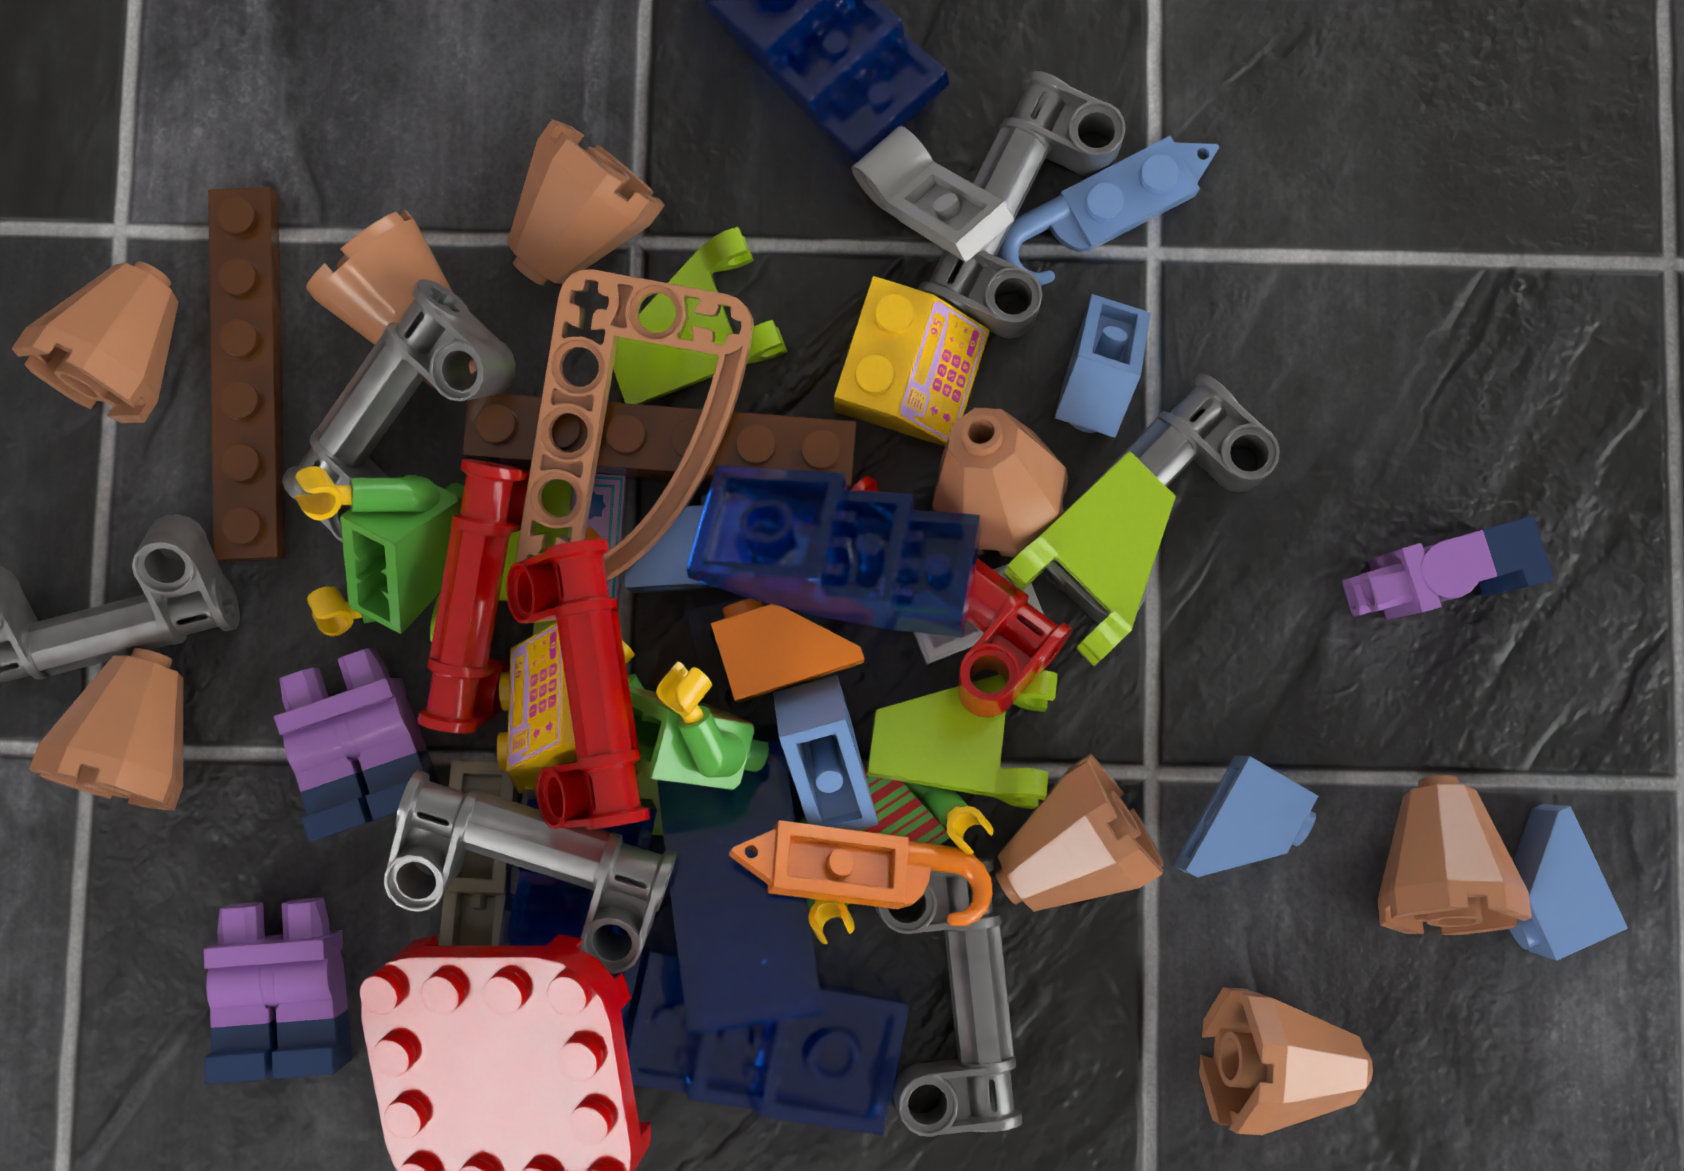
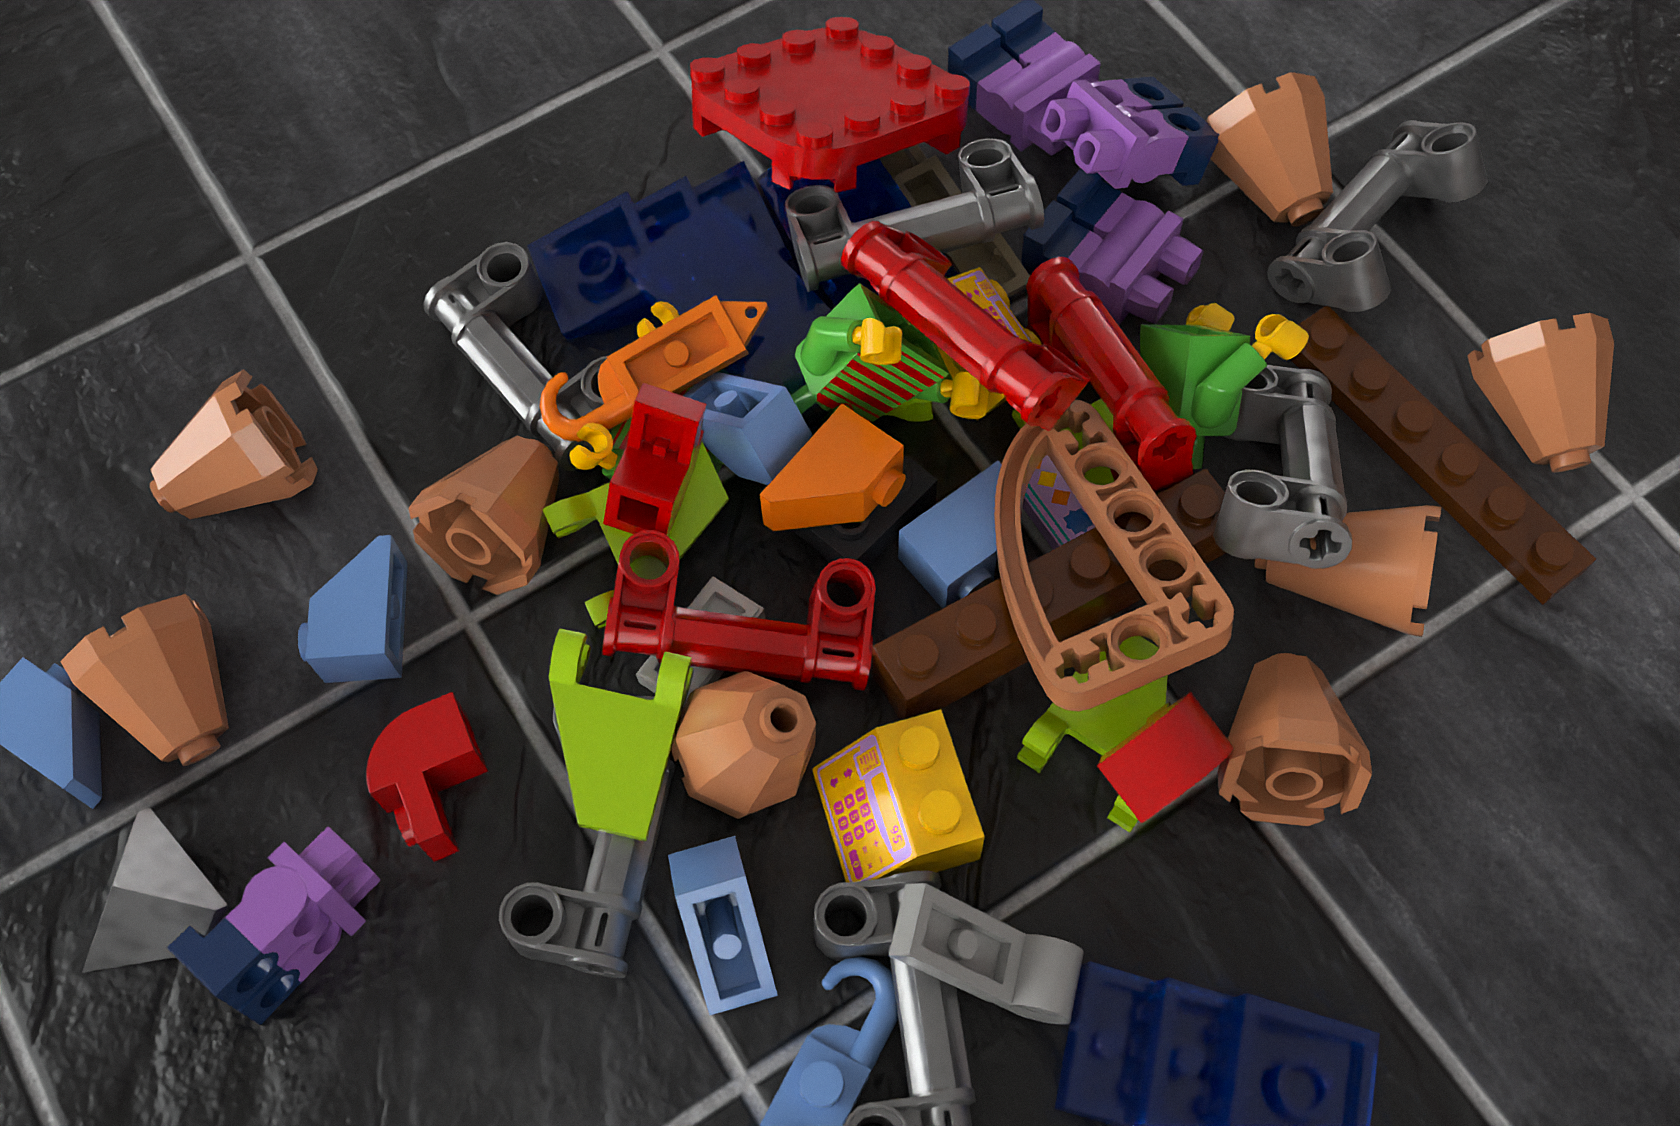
camera: 150 degrees right, 20 degrees down
(248, 843) = (1128, 135): none -> medium lavender hips
(695, 233) = (1165, 756): none -> red brick
(836, 550) = (842, 569): clear blue slope -> none
(932, 754) = (656, 462): none -> red brick
(1266, 653) = (417, 759): none -> red brick
(1532, 677) = (152, 900): none -> flat silver slope

